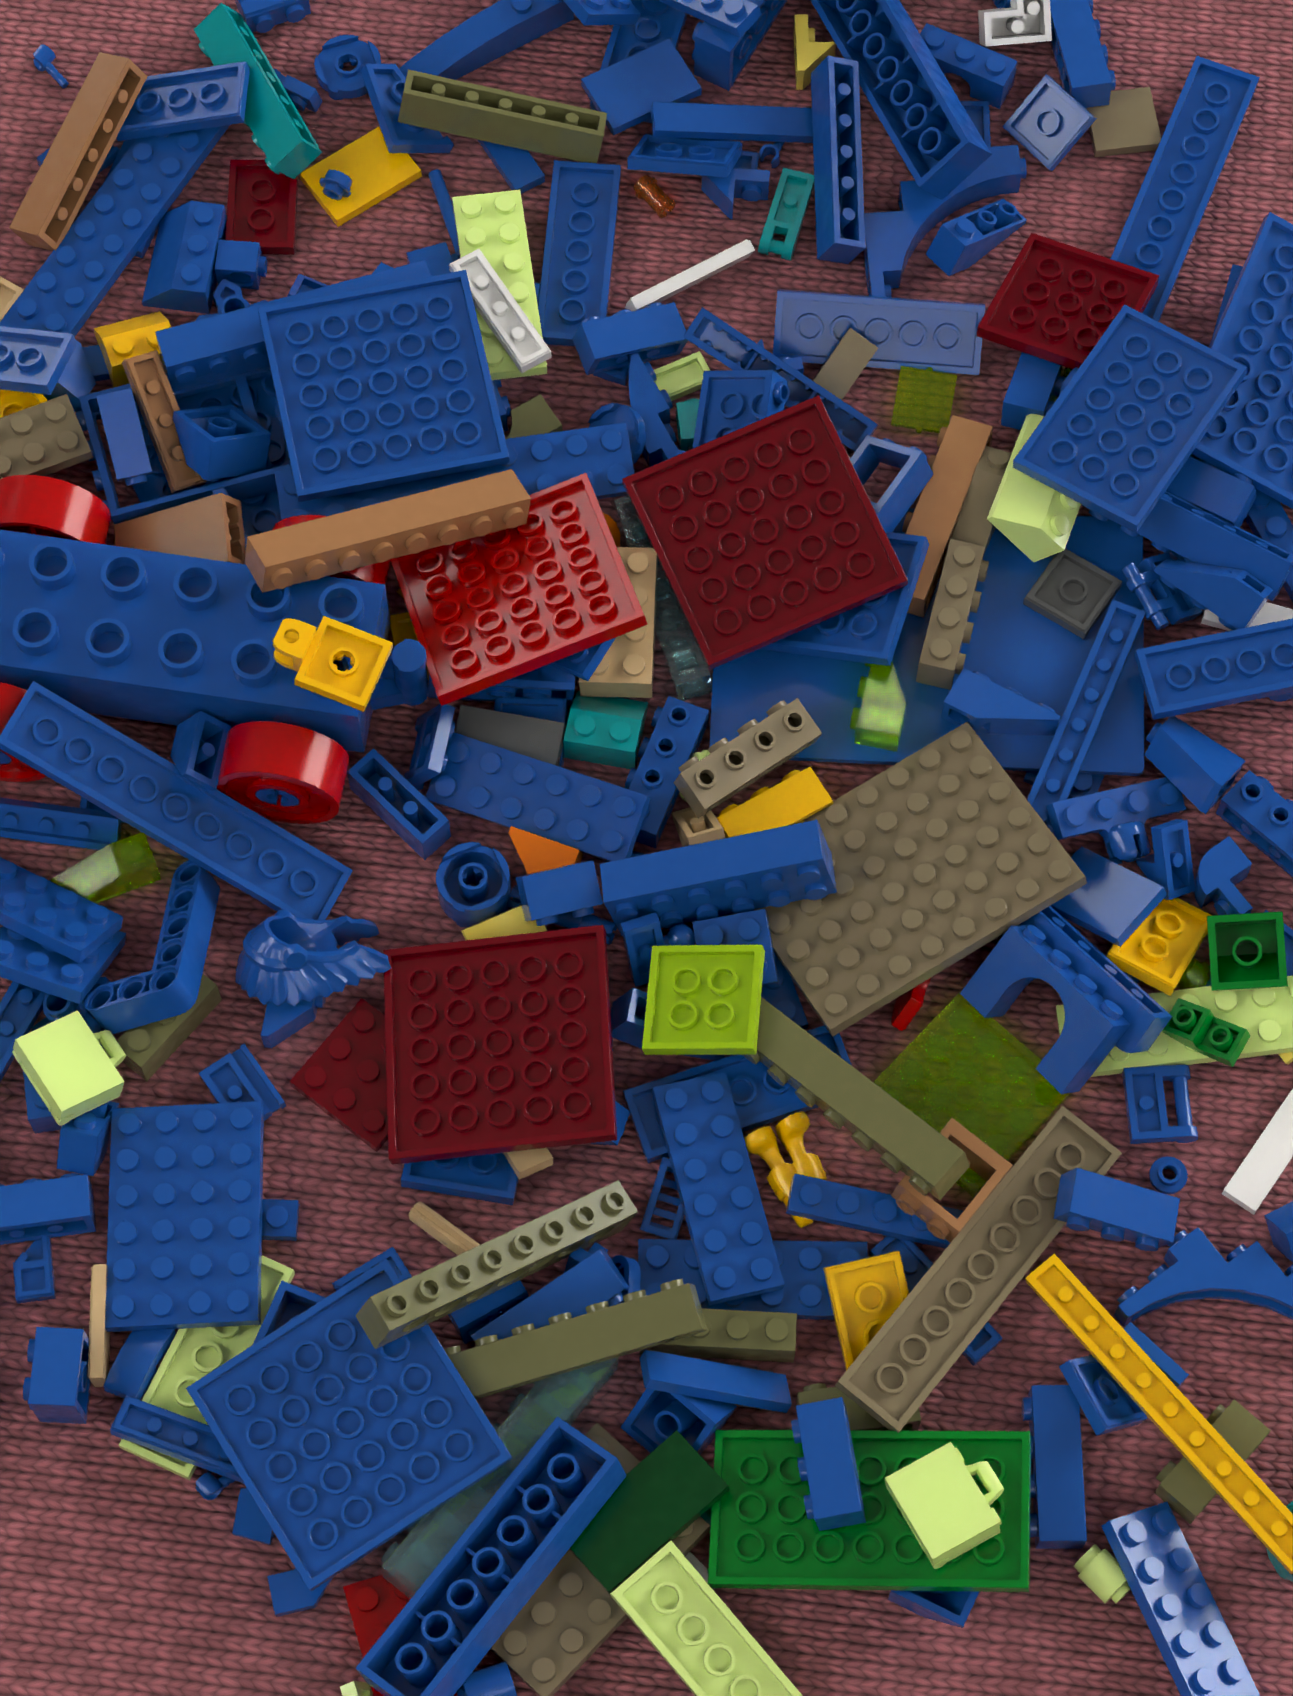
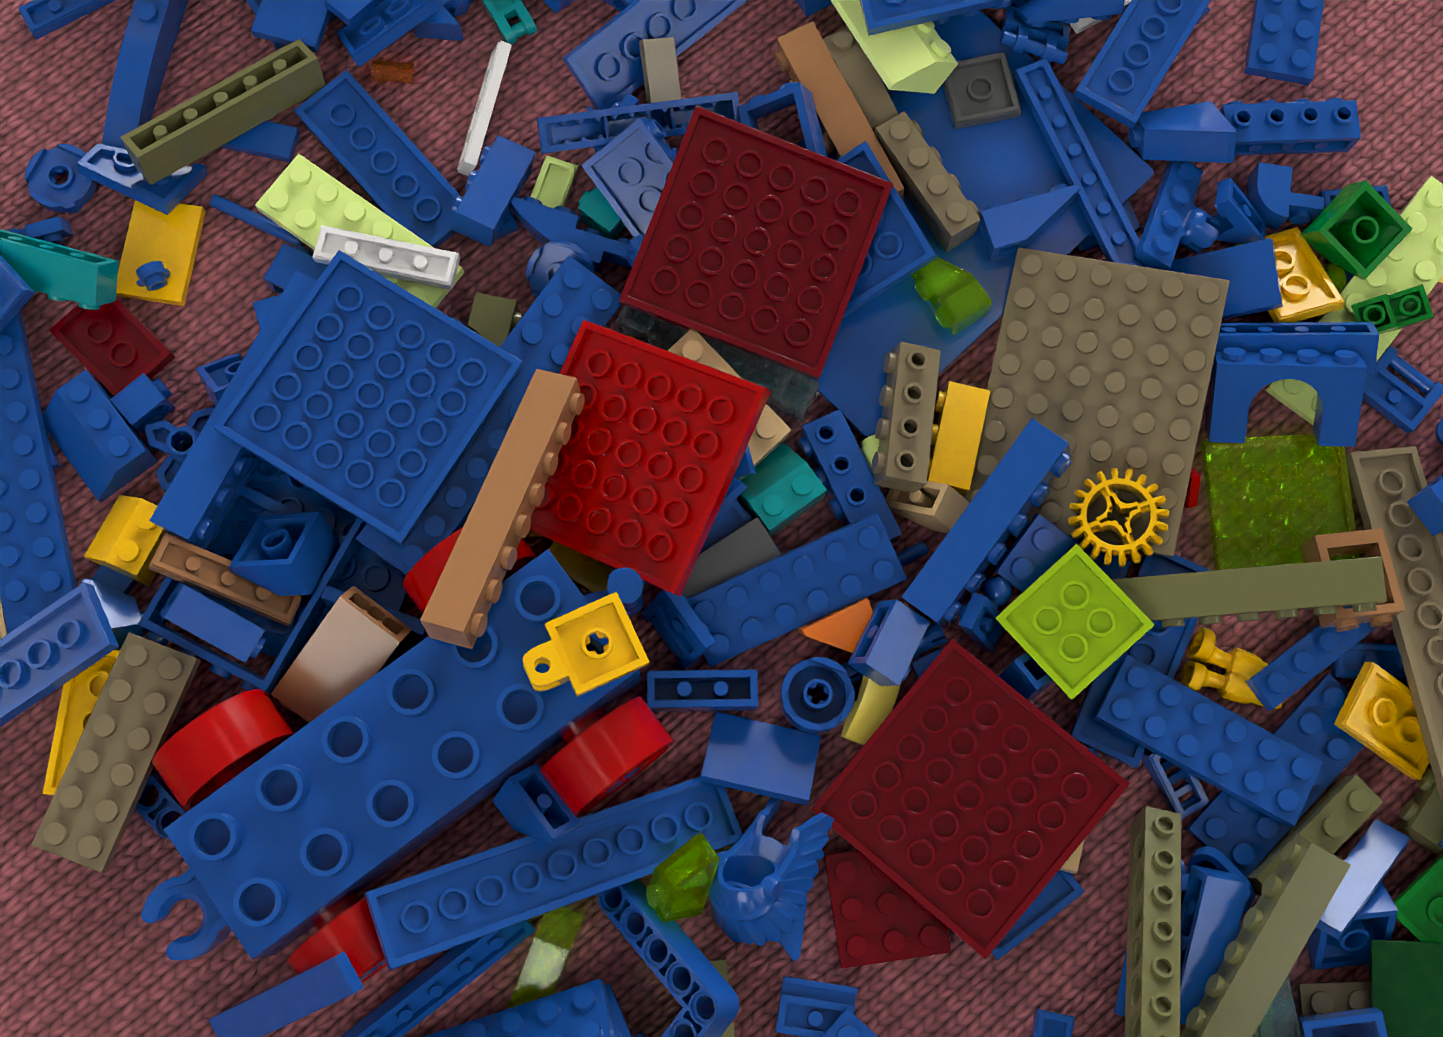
camera: 50 degrees left, 10 degrees up
(243, 904) = (683, 880): none -> clear neon green slope
(390, 889) = (761, 758): none -> blue tile
(441, 1229) = (1072, 958): tan axle -> none
(811, 941) = (1134, 510): none -> yellow gear
(923, 399) = (735, 47): clear neon green piece -> none

